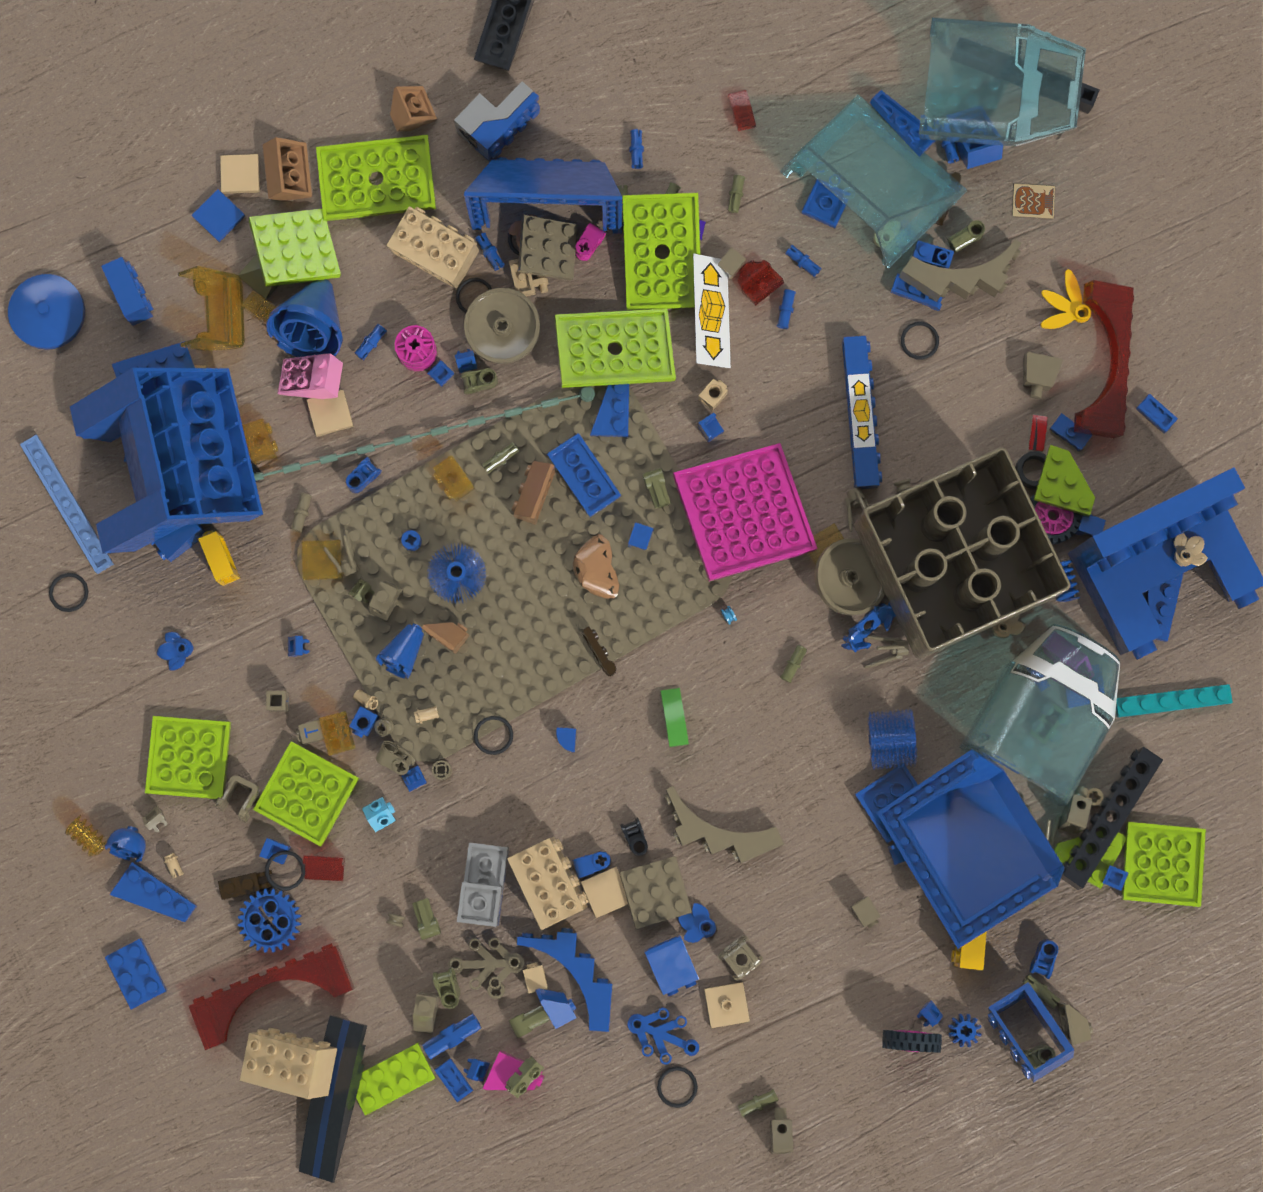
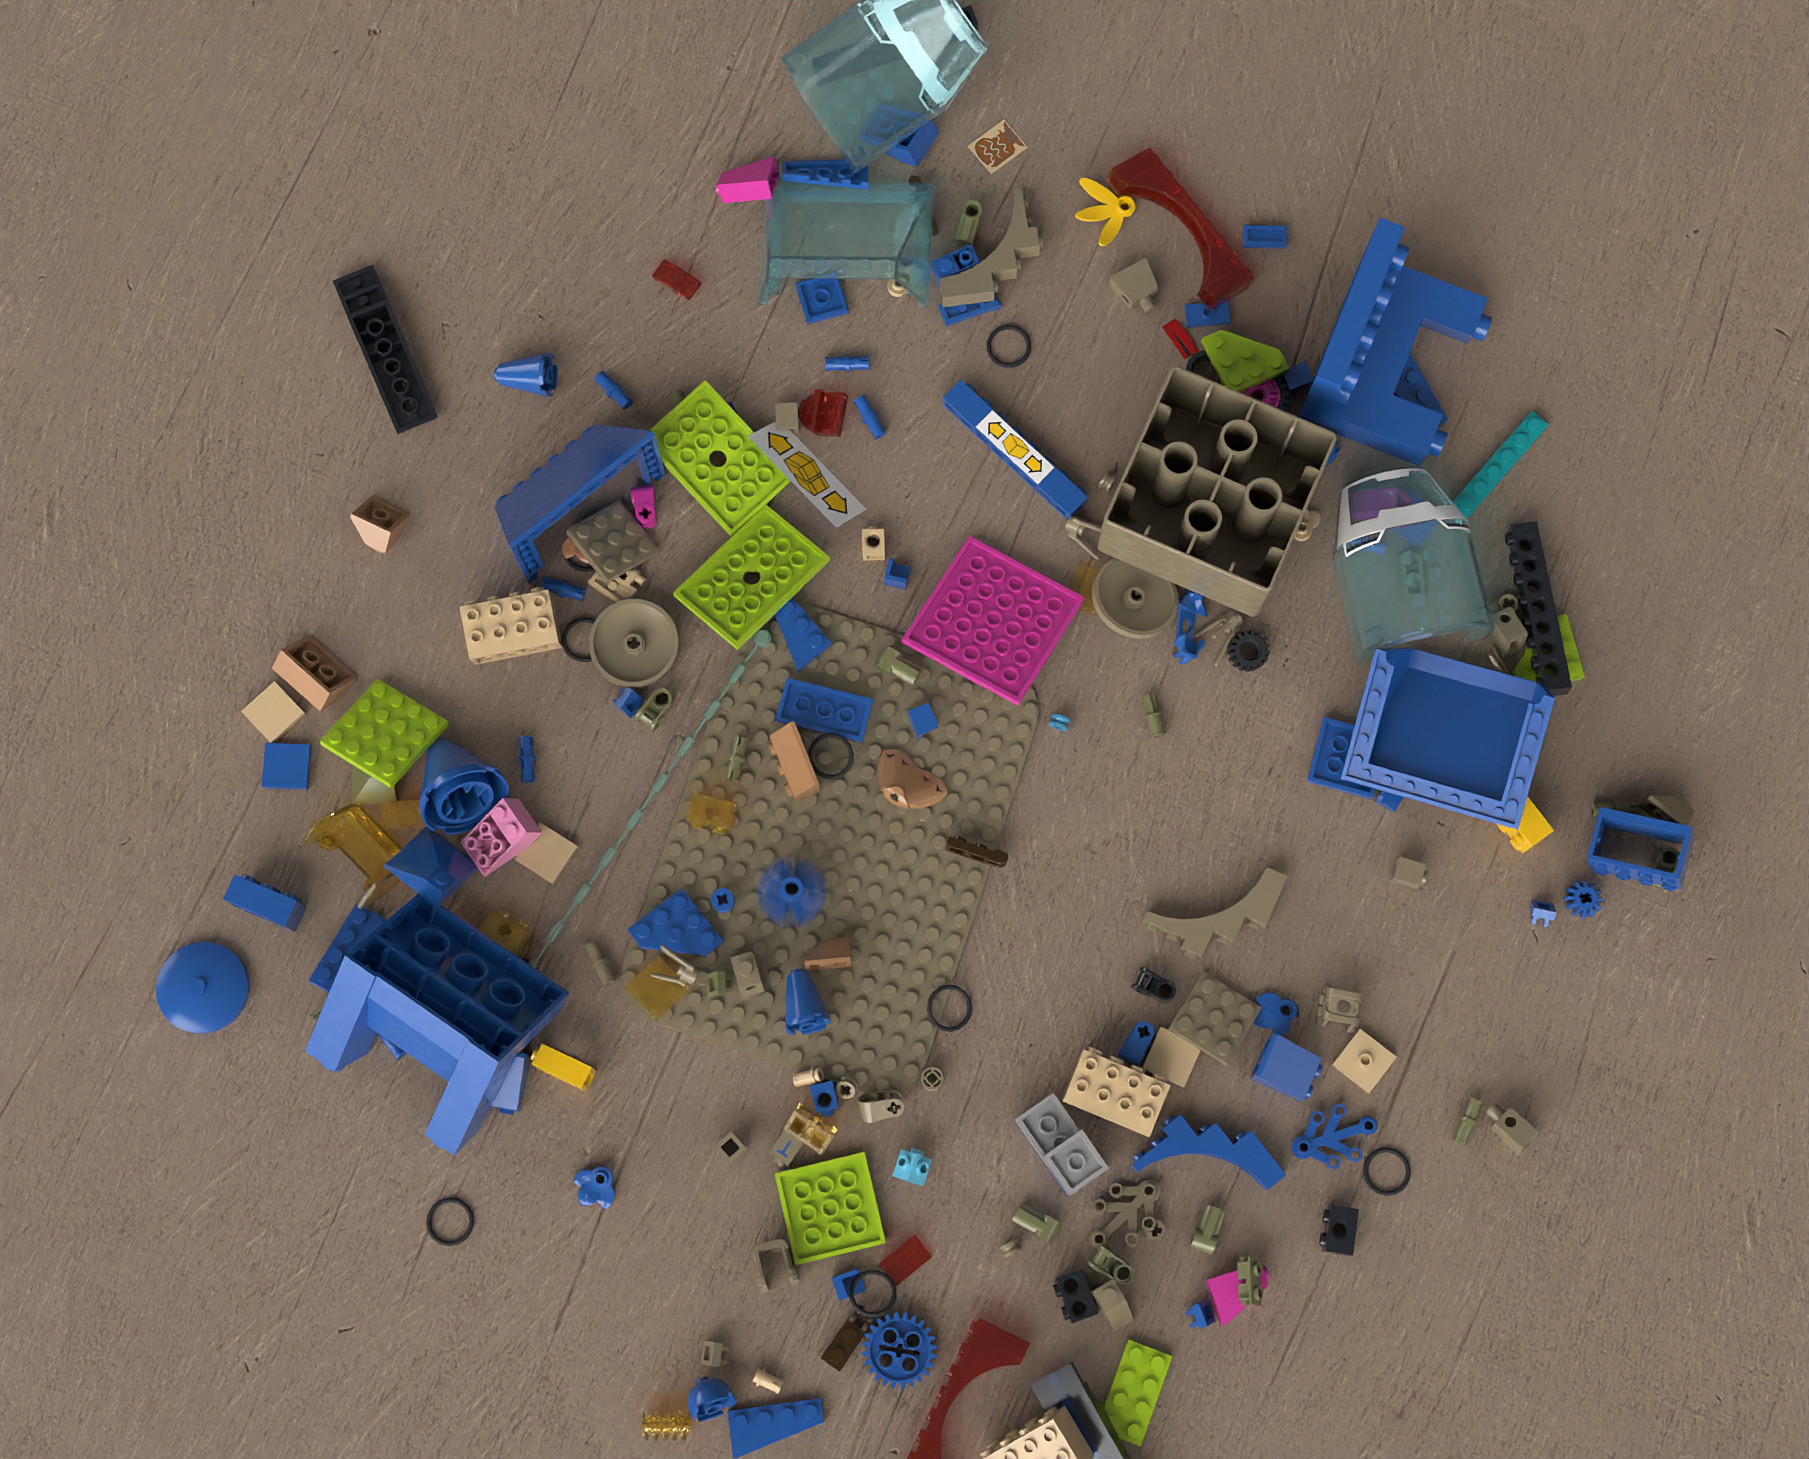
camera: 40 degrees left, 5 degrees down
(66, 503) = (377, 1143): medium blue plate -> none
(188, 757) = (694, 1272): lime plate -> none
(250, 359) = (432, 866): none -> blue slope
(295, 646) = (703, 1085): blue tile -> none
(346, 173) = (368, 623): lime plate -> none
(363, 474) = (626, 879): blue piece -> none
(367, 532) = (677, 926): none -> blue plate
(412, 988) = (1081, 1294): none -> black brick
(414, 778) = (914, 1109): blue tile -> none
(423, 355) = (574, 741): dark pink wheel -> none
(426, 714) = (874, 1042): tan pin -> none
(440, 373) = (615, 732): blue tile -> none
(451, 1036) = (1153, 1305): blue piece -> none
(453, 1080) = (1189, 1342): blue plate -> none
(491, 127) = (467, 479): piece -> none
(535, 977) = (1179, 1187): tan brick -> none
(557, 1006) = (1222, 1194): slope -> none
(567, 738) = (1016, 953): blue brick -> none
(576, 515) = (850, 750): none -> black piece
(591, 92) = (529, 374): none -> blue cone
(606, 1107) = (1348, 1219): none -> black brick
(674, 717) = (1093, 852): bright green slope -> none
(736, 193) = (736, 355): olive axle -> none
(846, 85) = (749, 182): none -> dark pink slope
(882, 676) = (1235, 650): none -> black tyre
(892, 739) = (1297, 703): blue piece -> none
(912, 1041) = (1549, 946): black wheel -> none
(950, 150) = (888, 163): blue pin -> none
(1044, 960) = (1593, 779): blue piece -> none
(1115, 877) = (1588, 656): blue tile -> none
(1164, 864) = (1616, 610): lime plate -> none
(1191, 548) = (1400, 322): tan plate -> none

